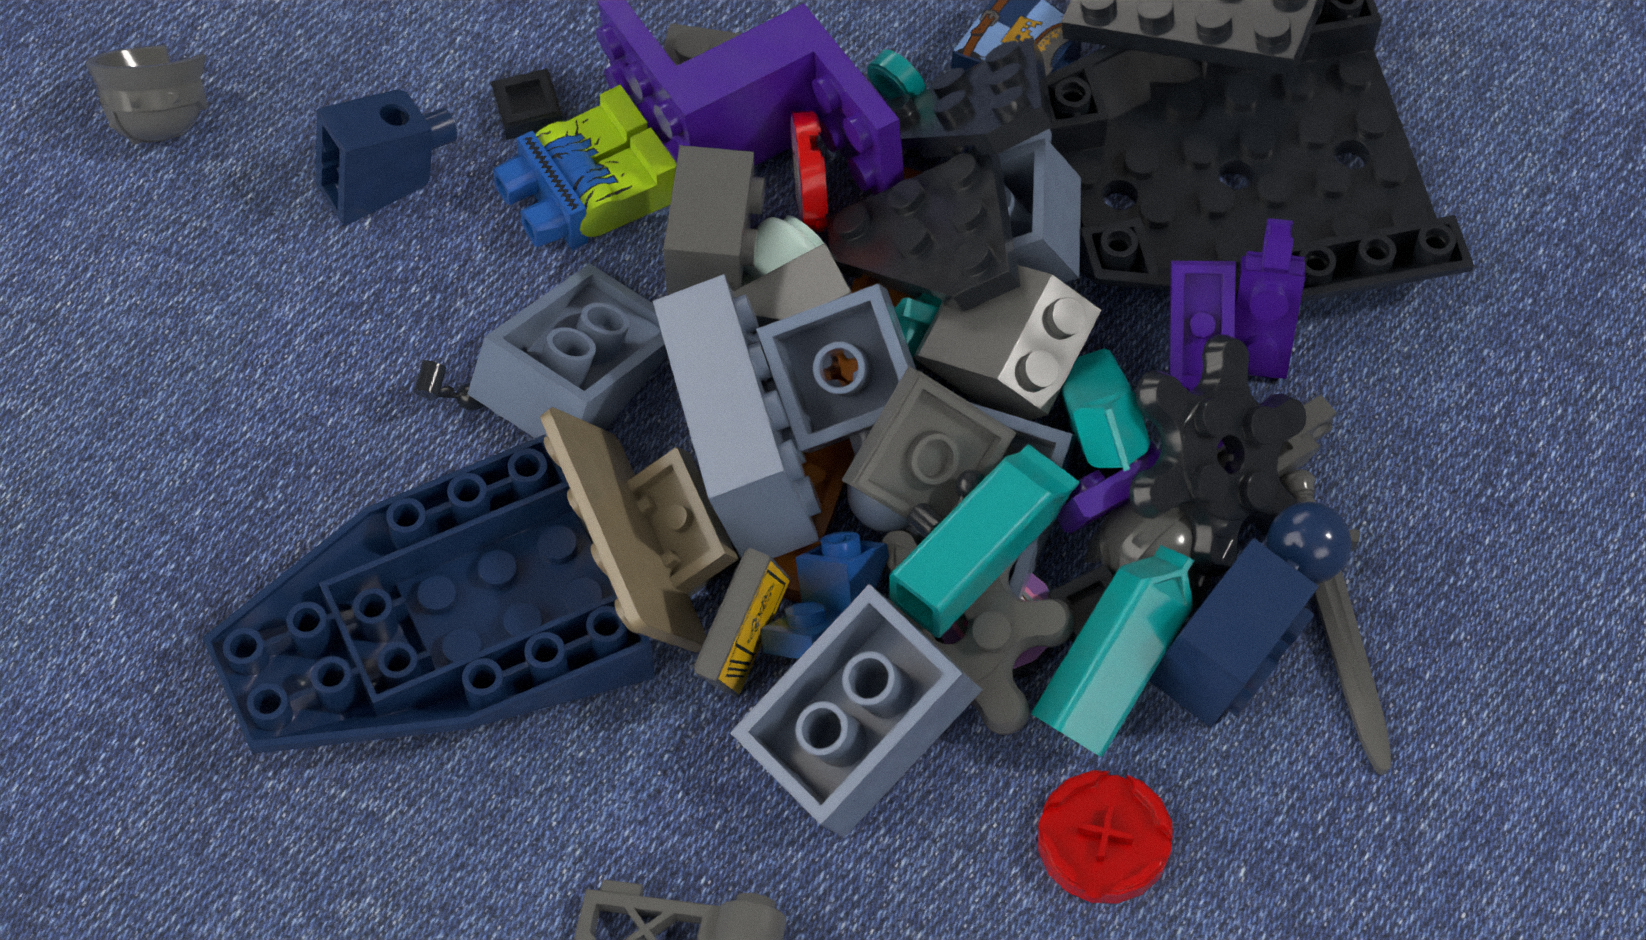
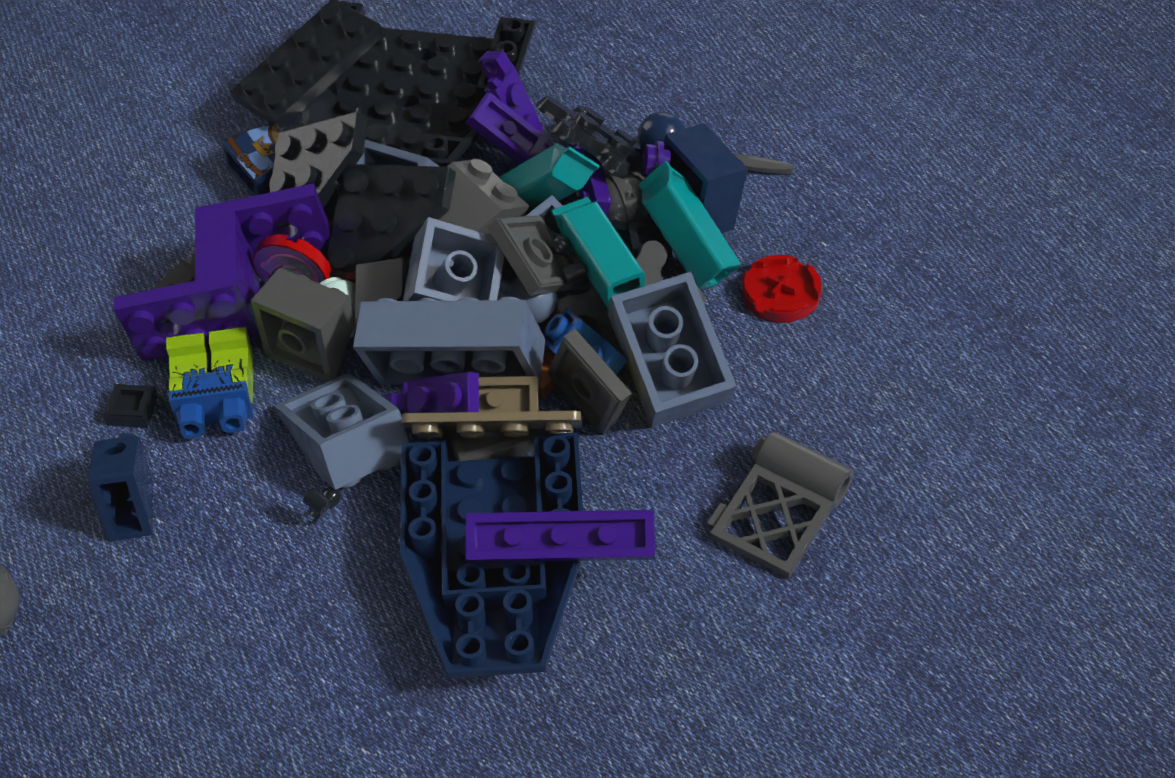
camera: 65 degrees left, 10 degrees down
(440, 687) = (560, 536): none -> dark purple plate
(642, 444) = (438, 394): none -> dark purple hinge
(1211, 547) = (654, 156): none -> dark purple plate

